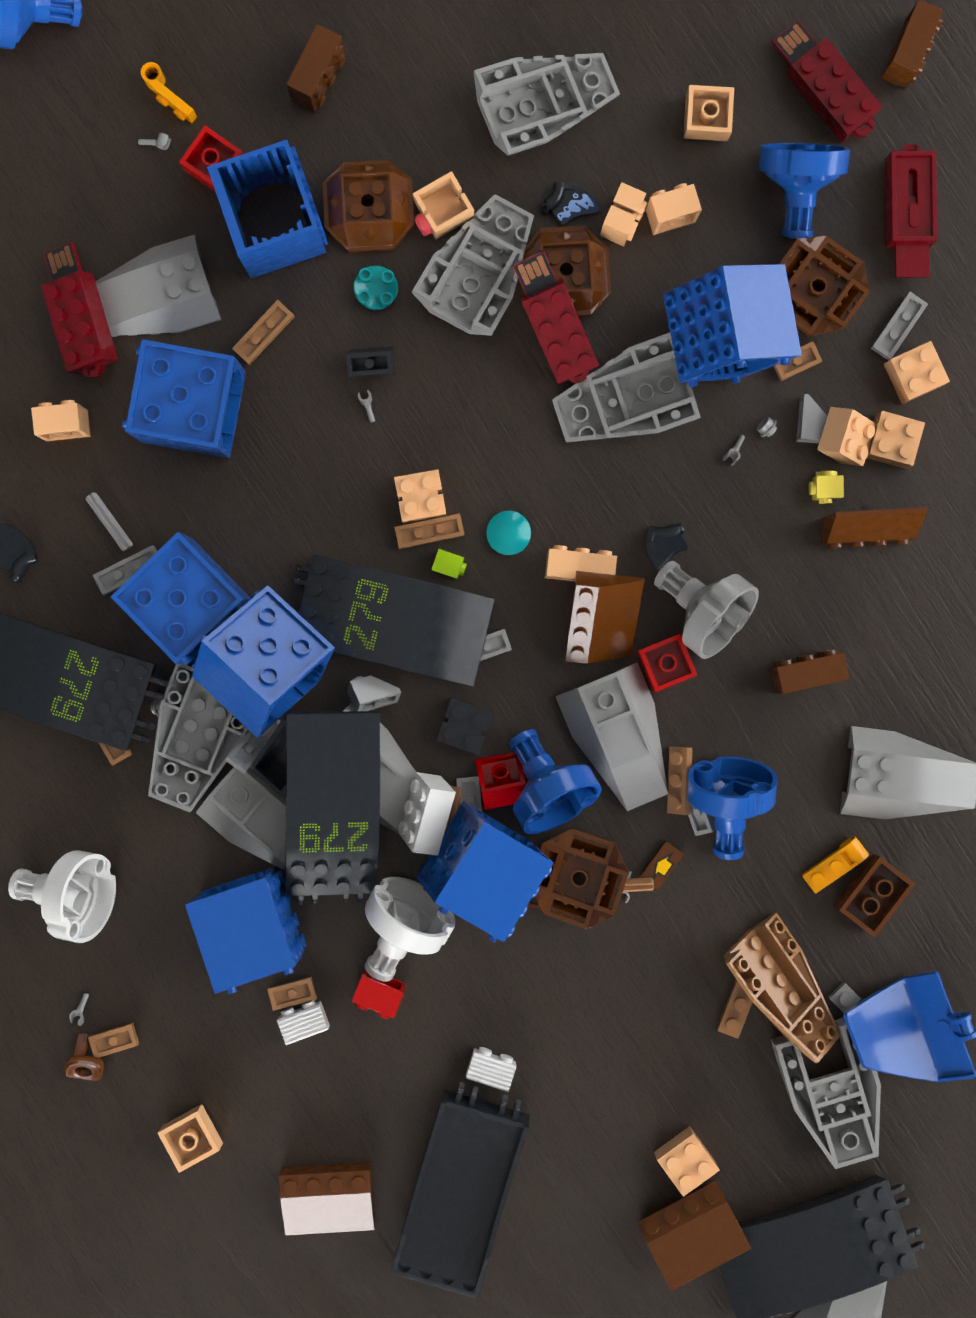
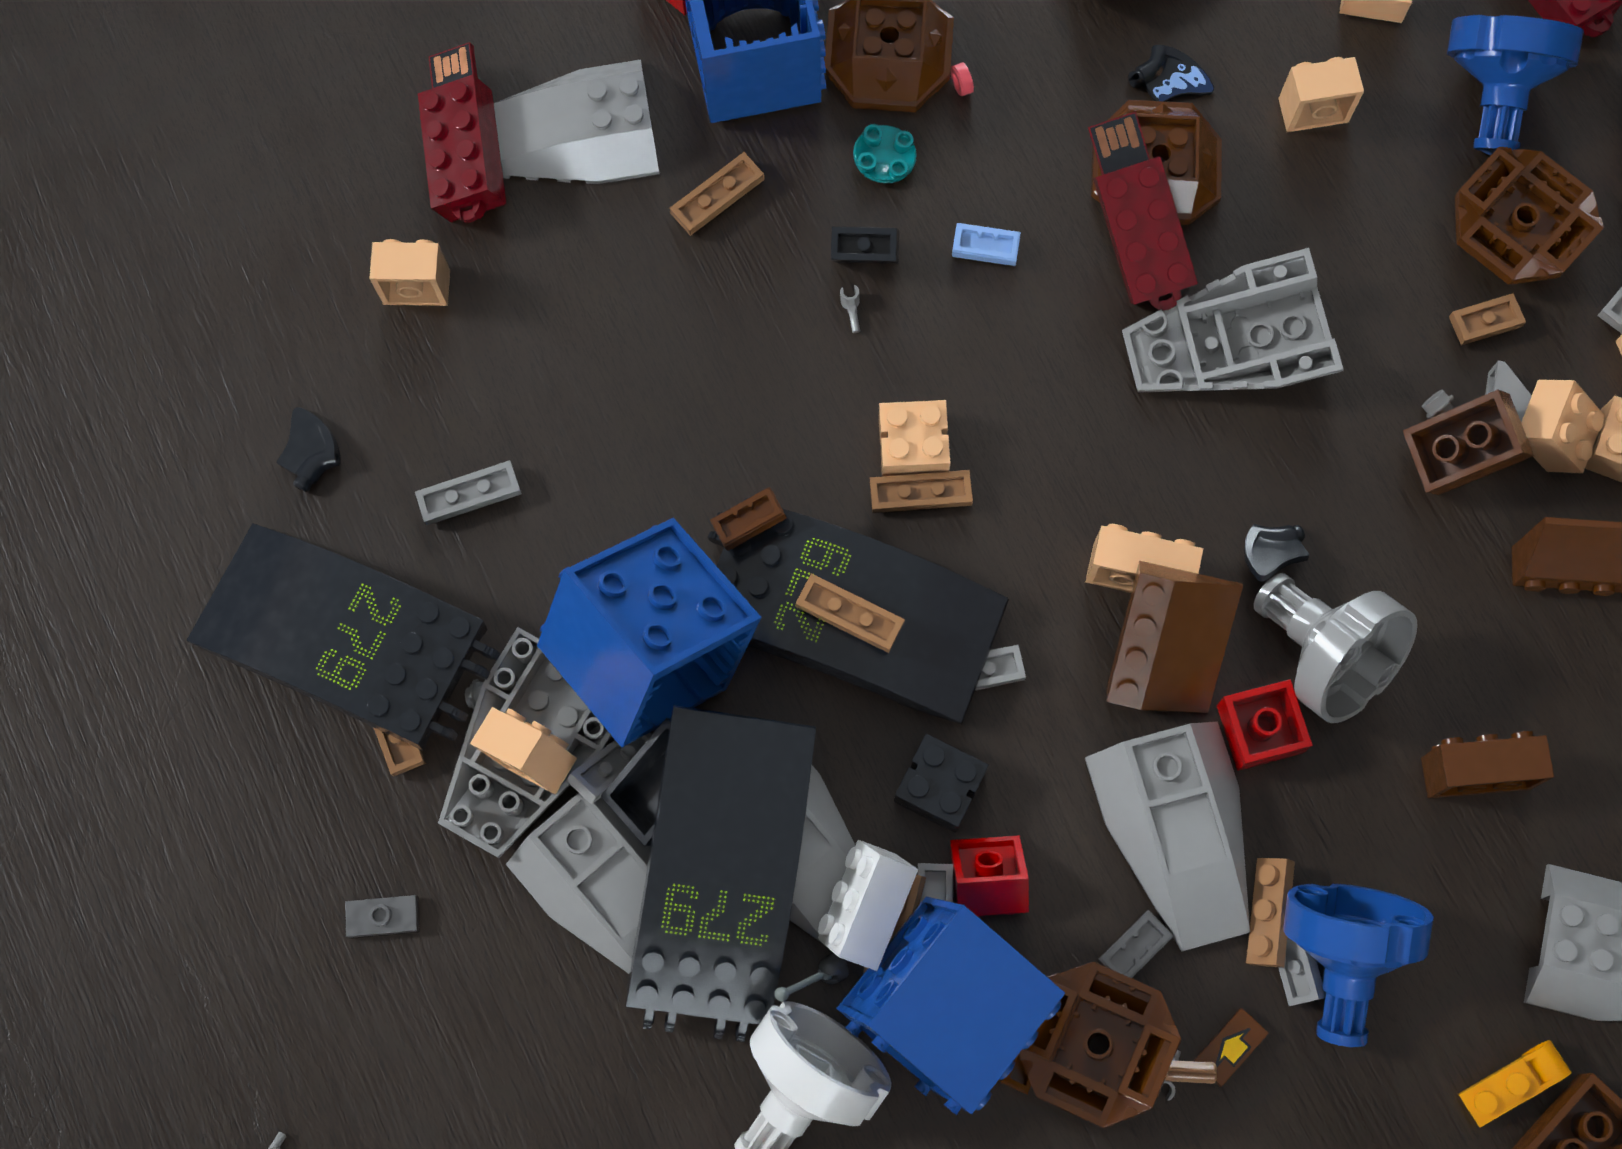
camera: 10 degrees right, 15 degrees down
(72, 897) = (292, 961): white piece -> none
(109, 521) = (452, 422): light grey axle -> none
(125, 853) = (382, 916): none -> flat silver plate
(180, 597) = (534, 518): blue piece -> none
(185, 399) = (594, 255): blue piece -> none
(195, 745) = (524, 748): none -> light nougat brick
(246, 929) = (555, 1047): blue piece -> none
(317, 572) = (748, 518): none -> reddish brown plate
(371, 693) = (809, 708): light grey slope -> none
(392, 629) = (850, 613): none -> medium nougat plate
(407, 854) = (830, 971): none -> hinge
(442, 206) = (991, 55): light nougat piece -> none
(449, 564) = (944, 541): lime brick -> none
(453, 347) = (986, 244): none -> light blue plate
(473, 272) = (1032, 144): light grey wedge -> none
(508, 532) = (1038, 509): teal dish -> none
(552, 791) = (1072, 896): blue piece -> none
(598, 813) = (1136, 945): none -> flat silver plate
(621, 218) = (1249, 94): light nougat piece -> none
(732, 323) = (1401, 239): blue piece -> none
(734, 452) = (1386, 435): light grey hand -> none
(786, 457) = (1468, 442): none -> reddish brown brick
(827, 487) = (1525, 499): light yellow brick -> none

